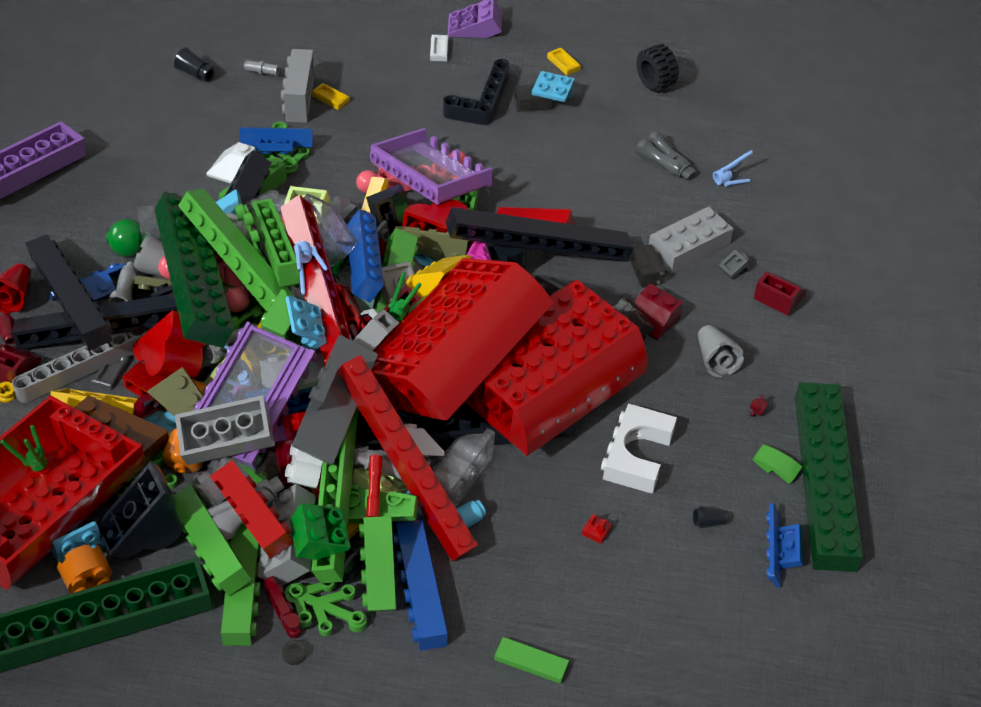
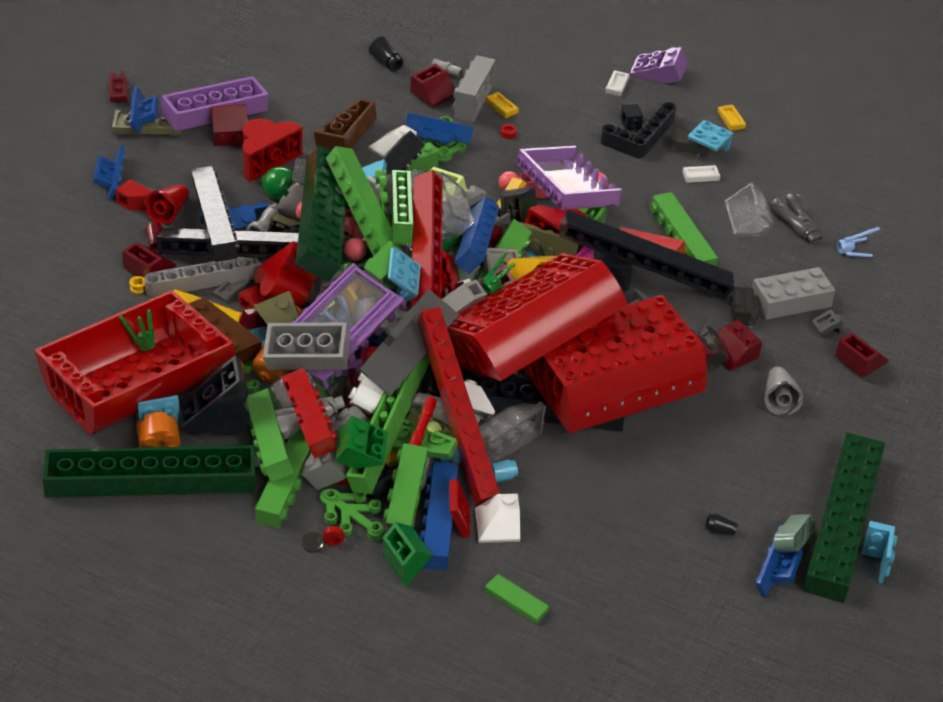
camera: 15 degrees right, 5 degrees down
(51, 182) = (228, 124): none -> dark red slope
(102, 197) = (269, 146): none -> red brick
(179, 158) = (347, 126): none -> reddish brown wedge
(253, 90) = (432, 85): none -> dark red slope
(283, 609) = (315, 506): dark red hinge -> none
(303, 255) = (419, 219): light blue plant -> none
(315, 640) = (333, 535): none -> red tile
(346, 124) = (508, 131): none -> red tile
(400, 641) = (405, 551): none -> green slope
(440, 572) = (459, 508): none -> red tile
(466, 82) = (631, 116): none -> black brick
(483, 572) = (498, 519): none -> white slope
(555, 129) = (701, 174): none -> white tile
(557, 193) = (680, 226): none -> bright green brick
(596, 529) = (614, 510): red tile -> none
(617, 160) = (749, 211): none -> clear slope
(624, 467) = (681, 434): white arch -> none
(657, 67) = (816, 138): black tyre -> none
(758, 406) = (802, 445): dark red plate -> none
(780, 463) = (799, 492): bright green slope -> none
(787, 508) = (794, 533): none -> sand green beam
(877, 497) = (879, 544): none -> medium azure bracket

